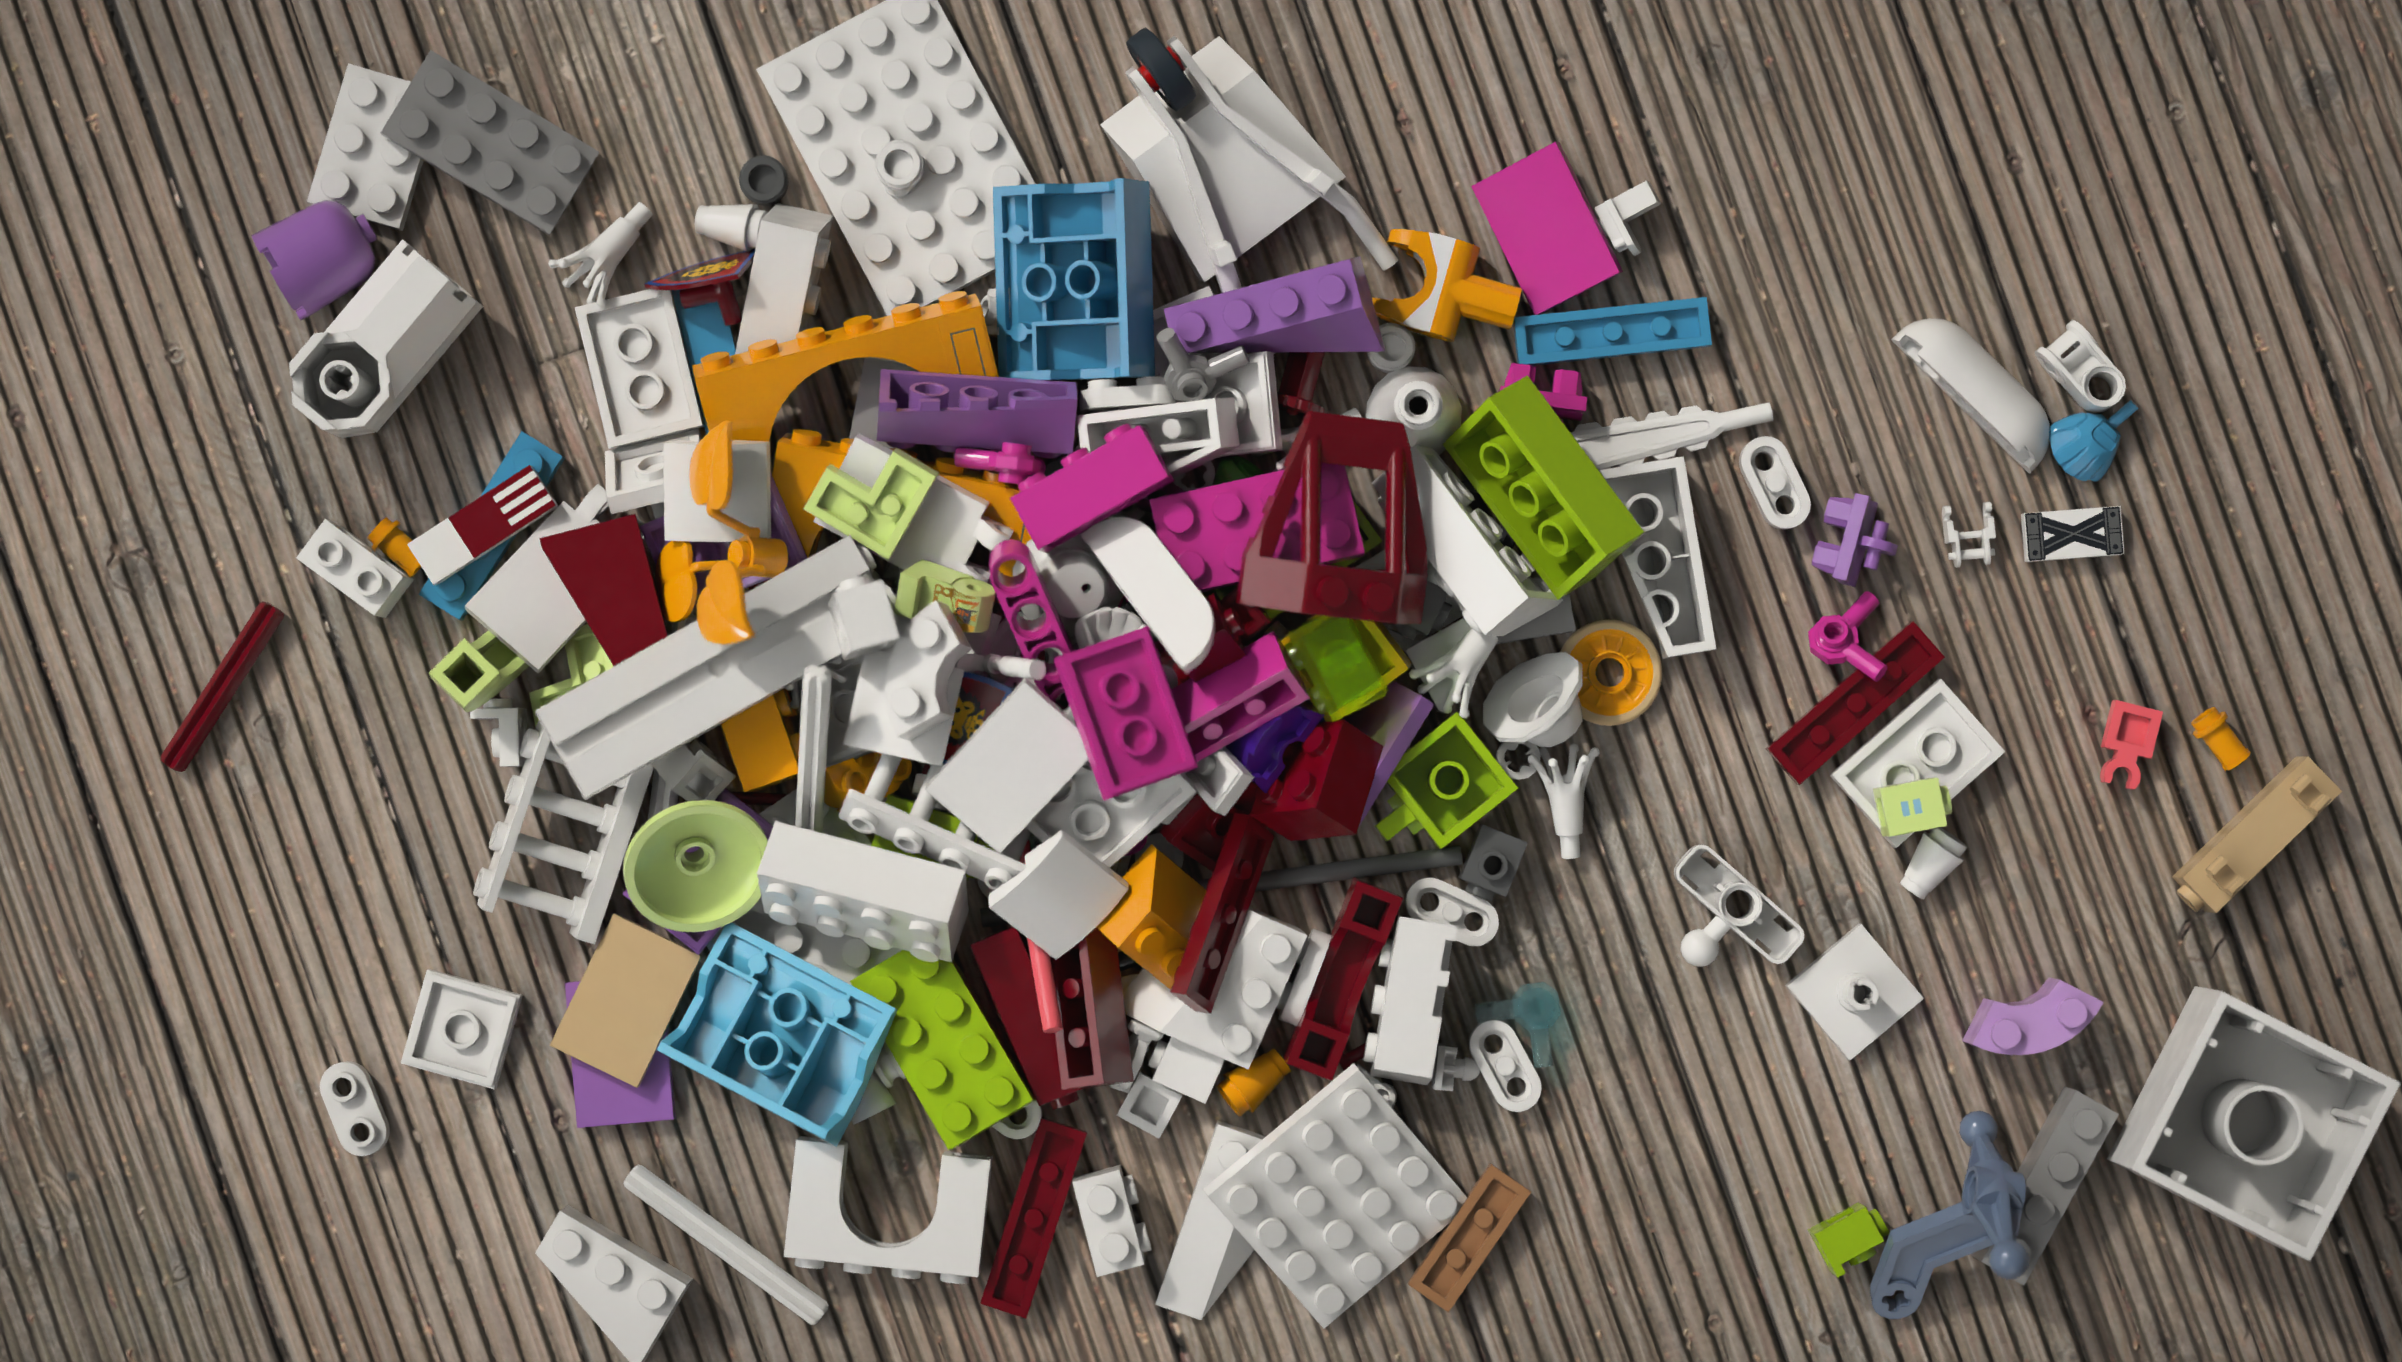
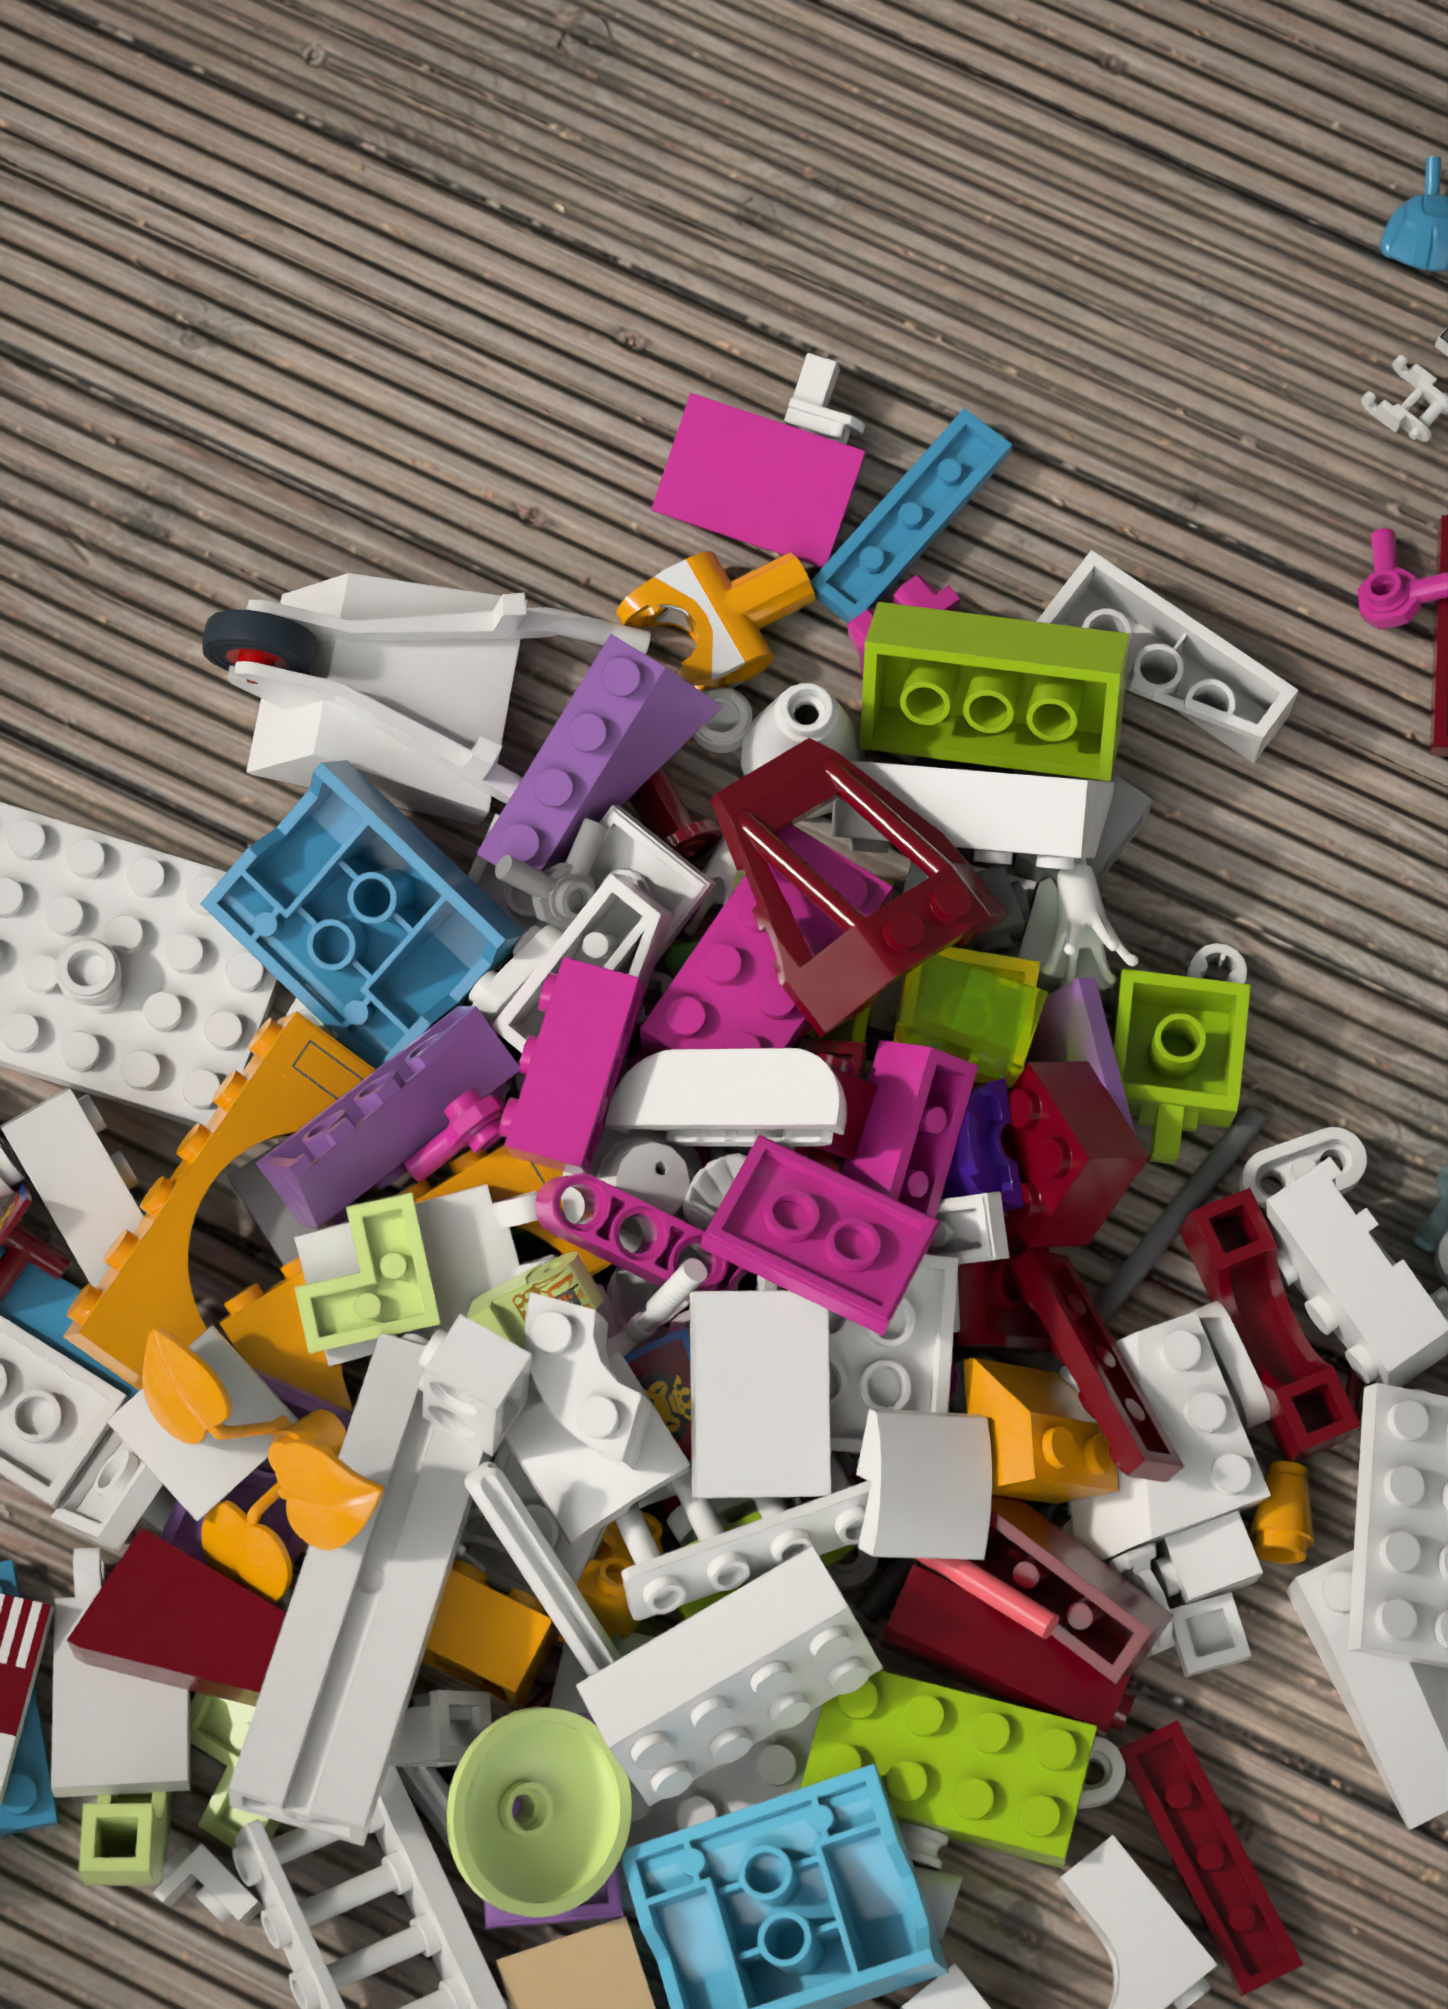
camera: 50 degrees left, 15 degrees down
(1109, 1221) = (1286, 1783): white brick -> none
(1491, 862) = (1292, 1087): dark grey brick -> none
(1536, 701) = (1183, 897): white hat -> none
(1566, 795) = (1298, 965): white piece -> none
(1639, 664) = (1212, 856): light orange wheel -> none
(1660, 434) = (1064, 543): white sword -> none
(1778, 481) = (1194, 510): white plate -> none
(1857, 519) = (1323, 523): medium lavender hips -> none
(1979, 387) = (1284, 272): white brick -> none
(2080, 366) = (1355, 168): white piece -> none

